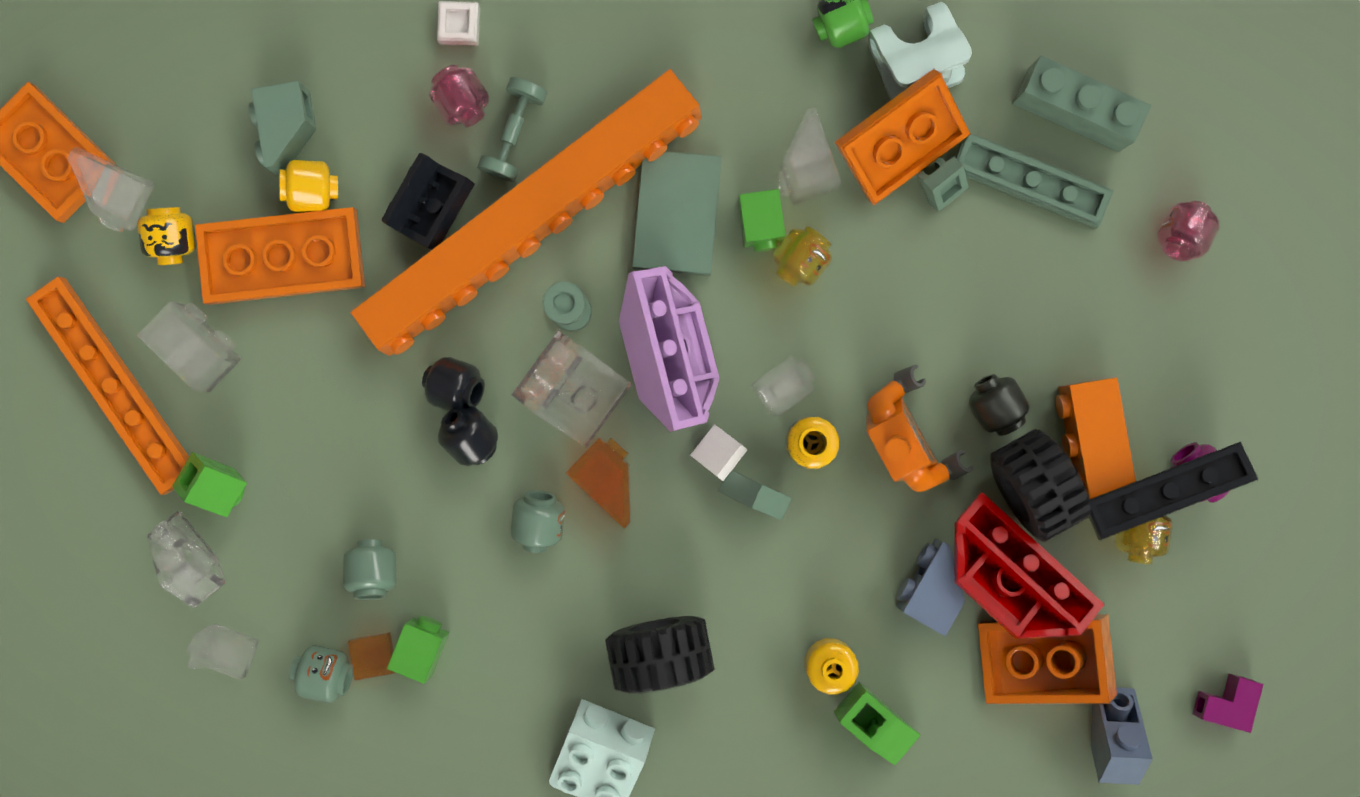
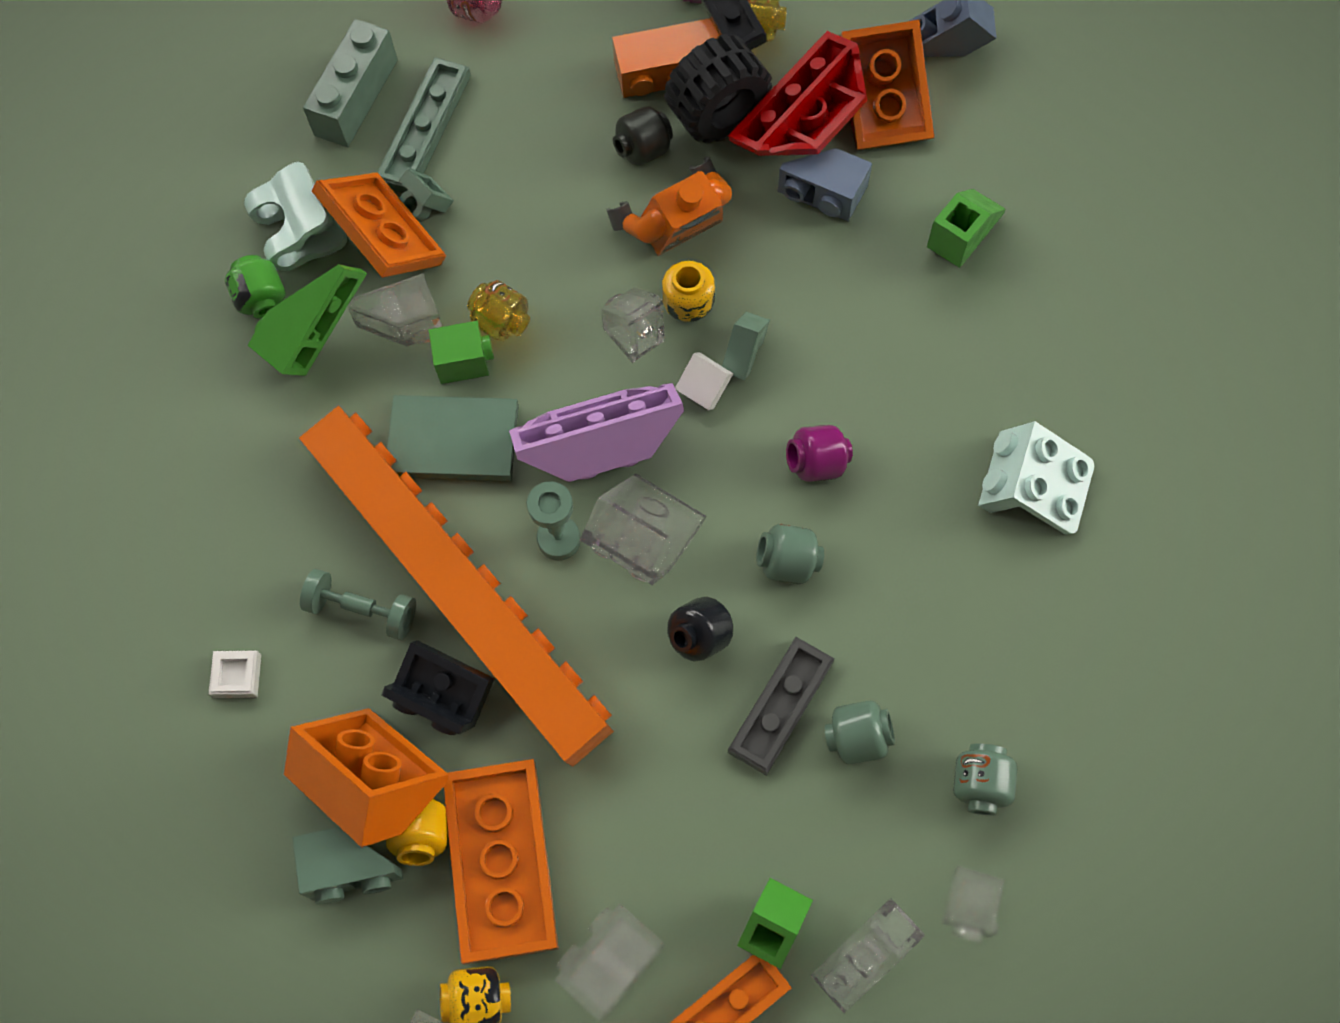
camera: 90 degrees left, 20 degrees down
(348, 139) = (362, 774): none -> orange slope
(371, 655) = (957, 730): clear orange tile -> none
(403, 503) = (780, 706): none -> dark grey tile
(418, 649) = (943, 673): bright green brick -> none
(453, 384) = (644, 652): black head -> none
(459, 96) = (318, 660): clear pink head -> none
(606, 478) = (739, 486): clear orange slope -> none
(636, 556) = (818, 453): none -> magenta head
(659, 654) = (919, 412): black tyre -> none
(784, 60) = (301, 324): none -> bright green slope
(832, 652) = (913, 264): yellow head -> none

